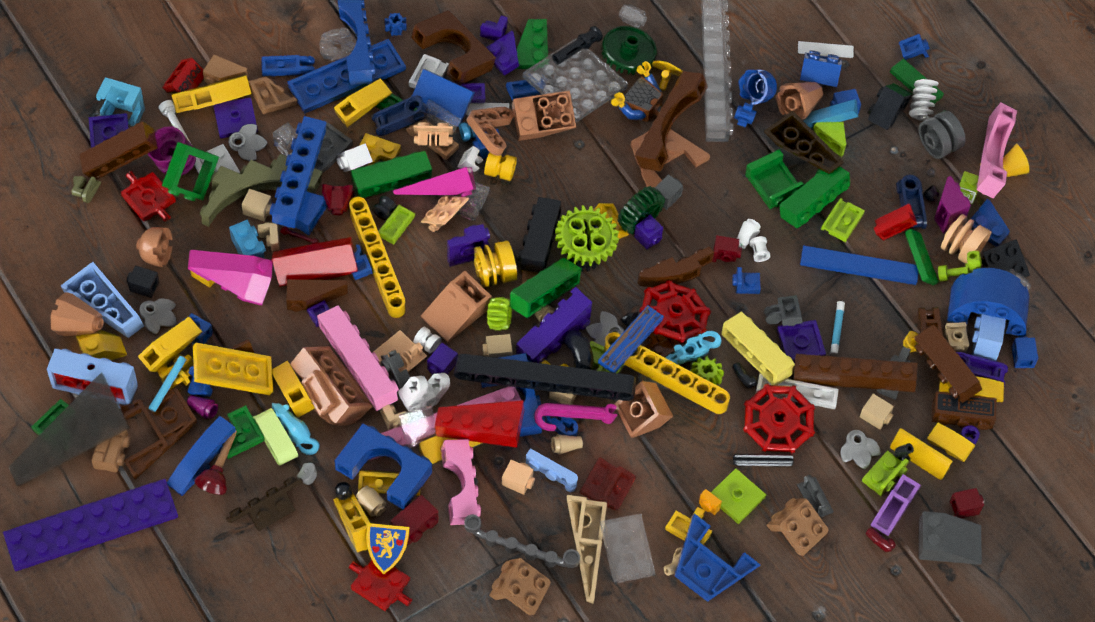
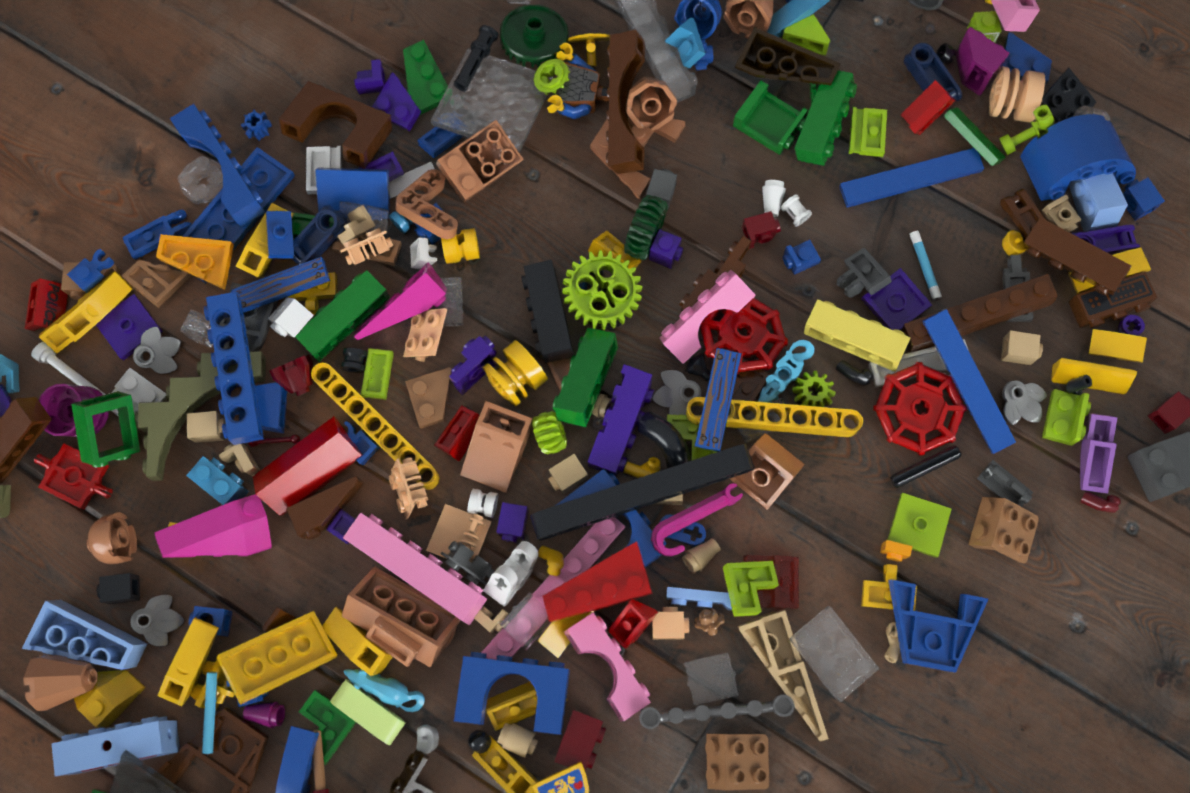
camera: 15 degrees left, 15 degrees up
(228, 68) = (88, 272): none -> blue plate
(309, 91) = (197, 256): none -> light orange wing
(360, 135) = (283, 284): none -> blue tile
(375, 100) = (279, 234): none -> blue plate
(380, 302) = (399, 479): none -> light nougat hinge
(425, 256) = (430, 396): none -> medium nougat wing
(429, 291) = (458, 433): none -> red slope
(436, 115) = (359, 224): none -> tan bracket
(458, 397) = (554, 559): none -> yellow arm
(493, 460) = (632, 622): none -> red slope
(530, 527) = (711, 679): none -> clear piece
(549, 487) = (709, 621): none -> medium nougat plant
(587, 468) = (744, 580): none -> lime plate
(626, 76) = (547, 70): none -> lime gear
(628, 294) = (727, 293): none -> bright pink arch
(688, 129) = (650, 103): none -> nougat cone
(738, 99) = (688, 42): none -> dark azure slope
(823, 412) = (969, 381): none -> blue tile

